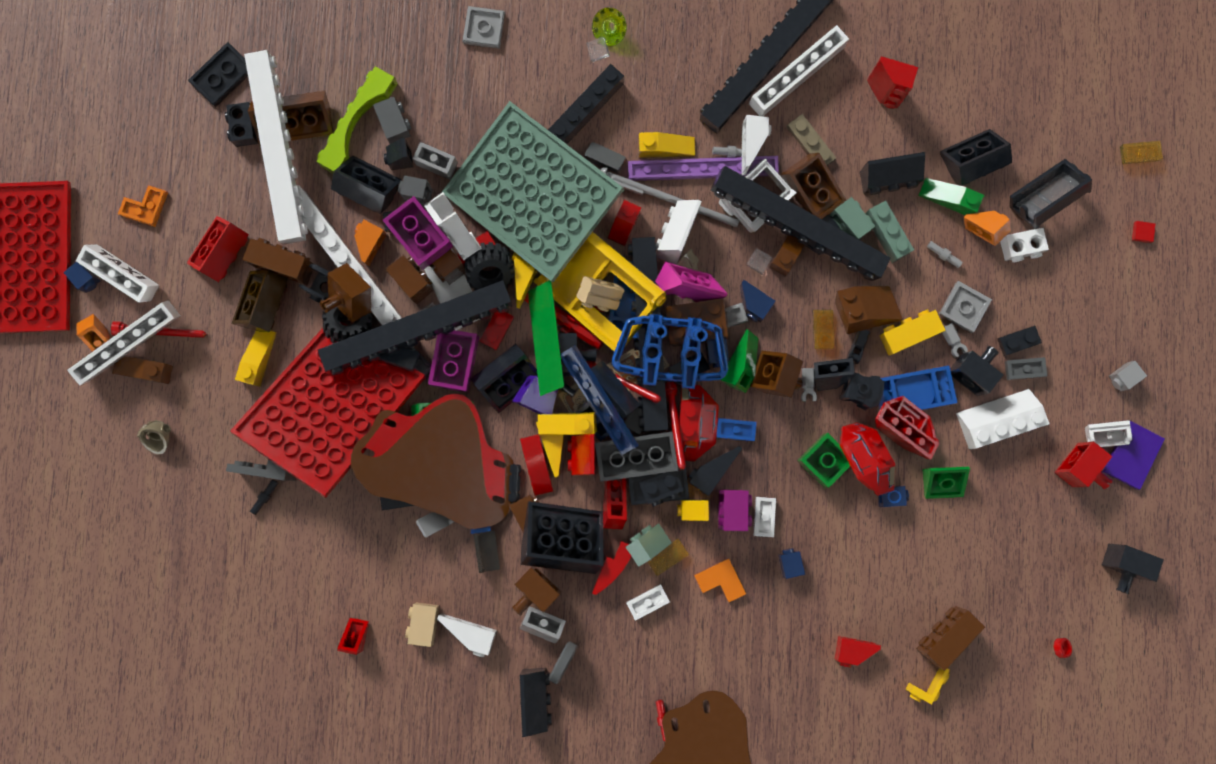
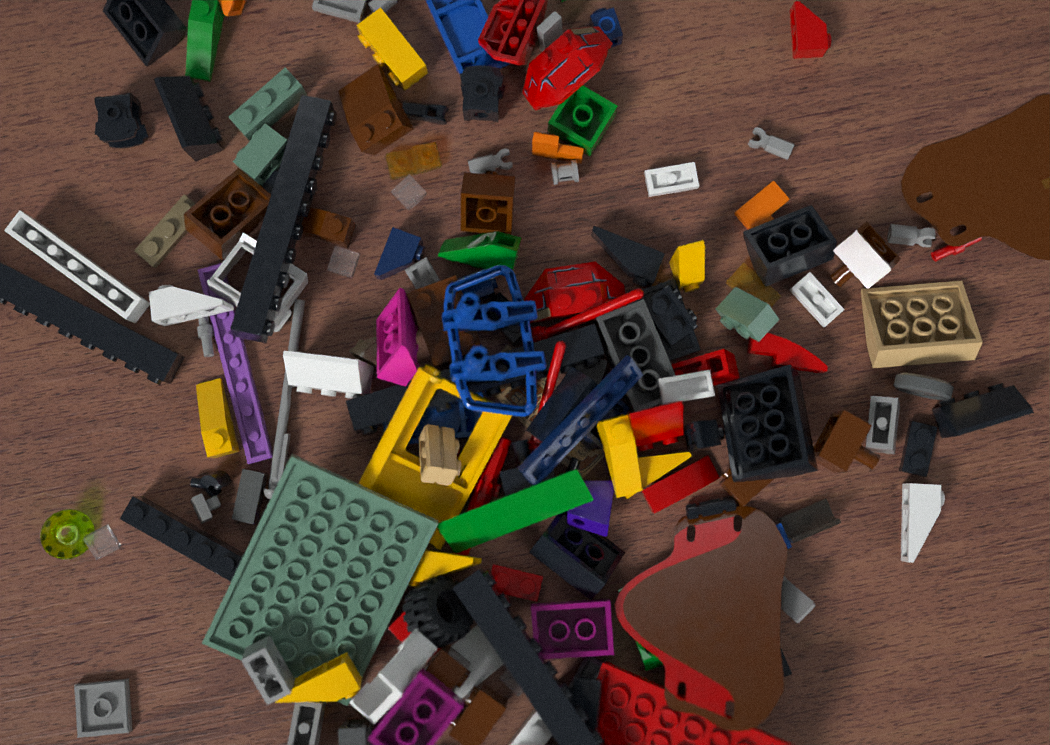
camera: 100 degrees left, 0 degrees up
(353, 636) = (964, 667): red slope -> none
(422, 624) = (923, 580): tan brick -> none
(460, 178) = (326, 682): none -> yellow slope
(479, 141) = (268, 670): none -> light grey brick
(518, 648) = (918, 449): none -> black plate
(567, 490) = (703, 434): none -> black slope
(604, 124) = (204, 507): none -> light grey tile
(604, 484) = (686, 387): none -> white tile
(610, 674) = (919, 324): none -> tan slope
(620, 133) = (212, 482): none -> black piece
(624, 222) = (333, 447): red slope -> none
(670, 645) = (865, 257): none -> brick
(679, 687) = (910, 235): none -> light grey bar
(693, 591) = (789, 245): none -> black slope
(734, 510) = (677, 215): magenta brick -> none
(736, 429) = (570, 239): blue plate -> none
(774, 600) = (771, 144): none -> light grey bar
(788, 438) = (565, 172): none -> light grey bush
(791, 563) = (721, 133): dark blue brick -> none
(800, 320) = (409, 192): none -> clear tile
(809, 431) = (548, 146): none -> orange tile
(833, 373) = (469, 132): black slope -> none
(891, 81) = (66, 141): red slope -> none
(898, 451) = (549, 30): none -> light grey tile
(901, 123) = (120, 121): none -> black piece
(944, 254) = (280, 31): light grey bar -> none

